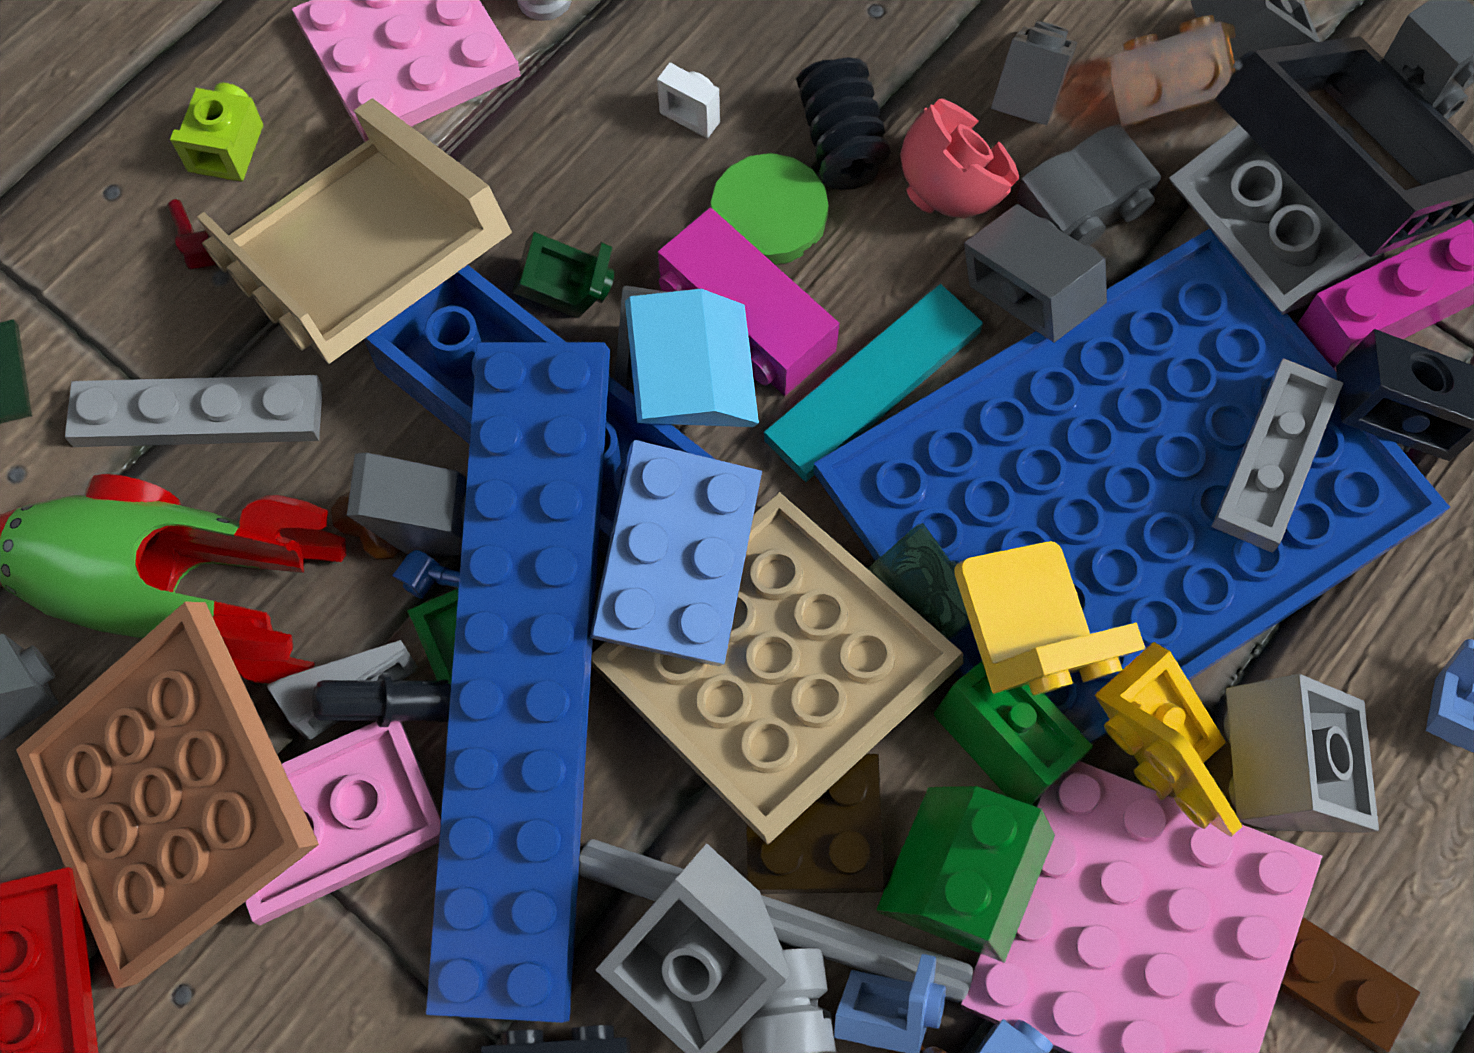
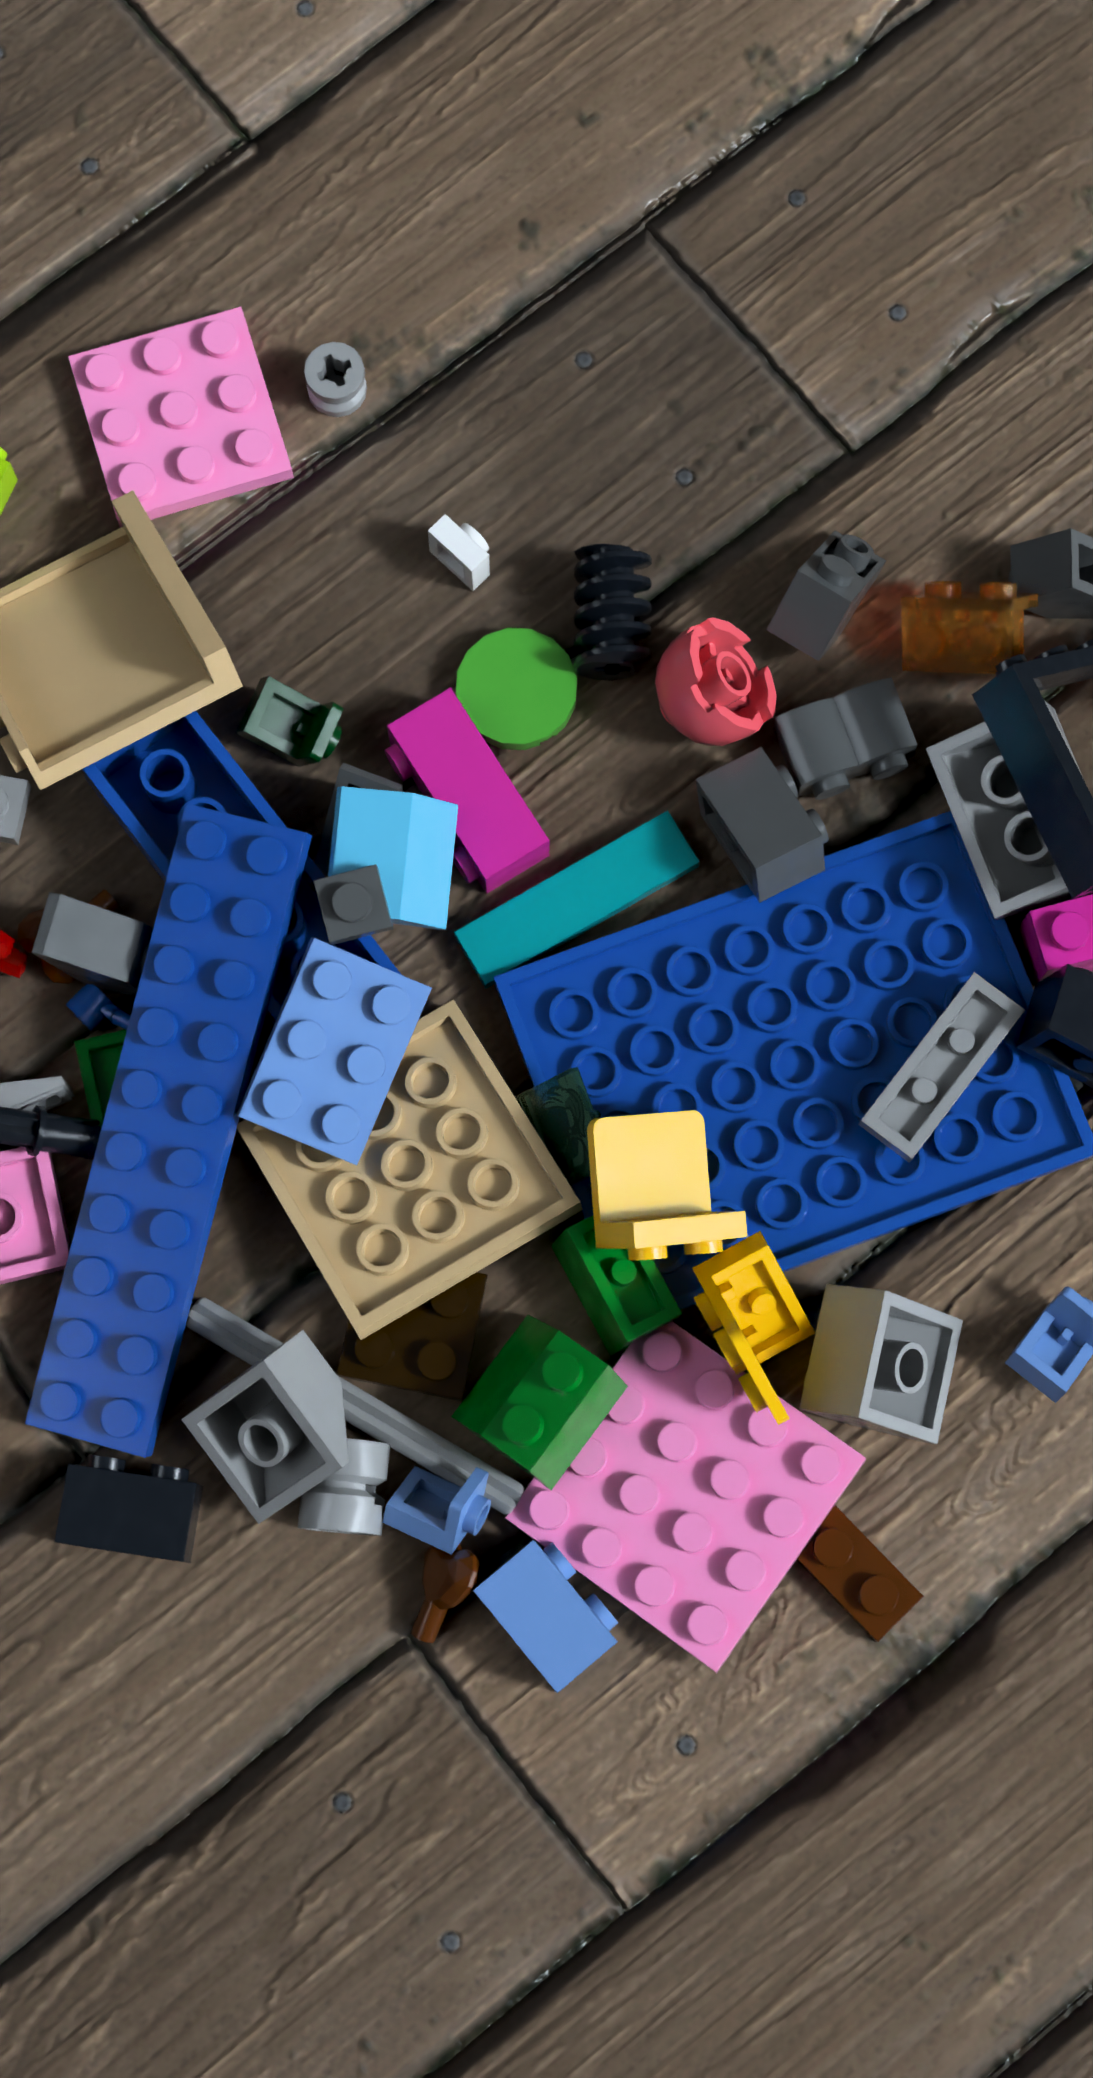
camera: 10 degrees right, 10 degrees up
(667, 402) = (353, 904): none -> dark grey plate

